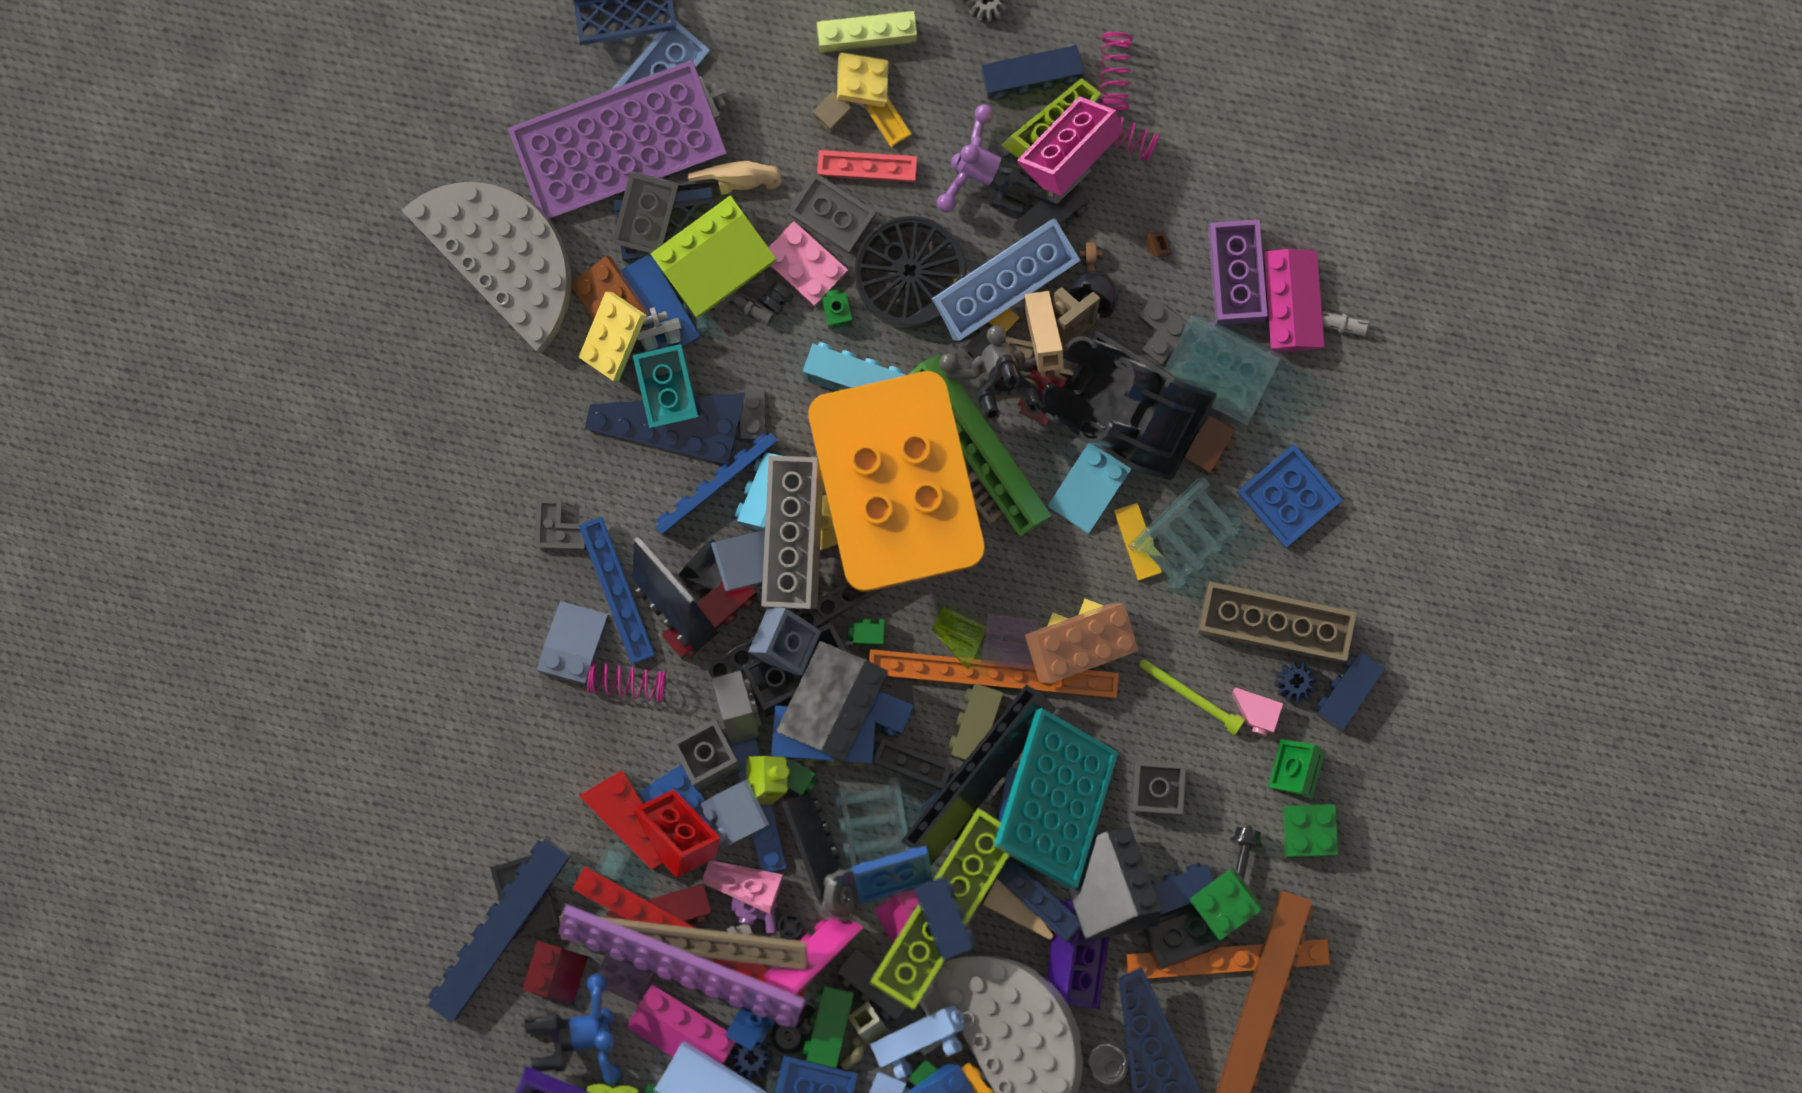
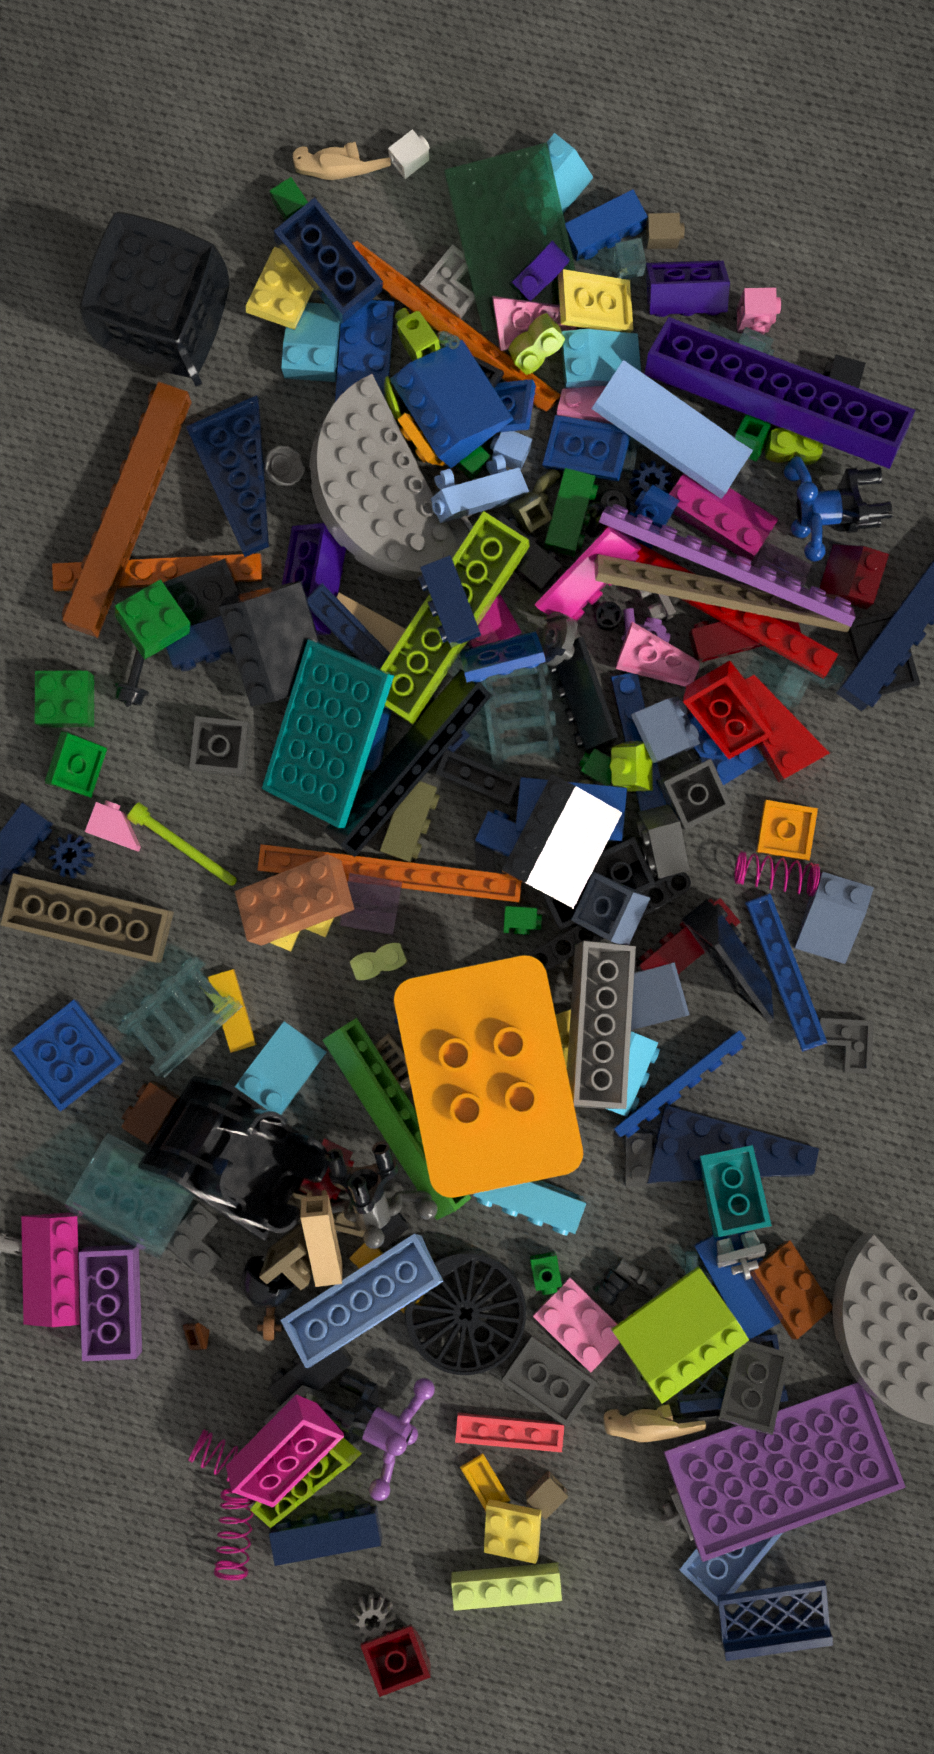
camera: 175 degrees left, 5 degrees up
(612, 336) = (790, 1249): light yellow plate -> none
(616, 724) = (786, 830): none -> light orange plate
(702, 569) = (697, 990): black slope -> none
(959, 634) = (424, 915): clear neon green wing -> none
(993, 592) = (384, 959): none -> yellowish green brick

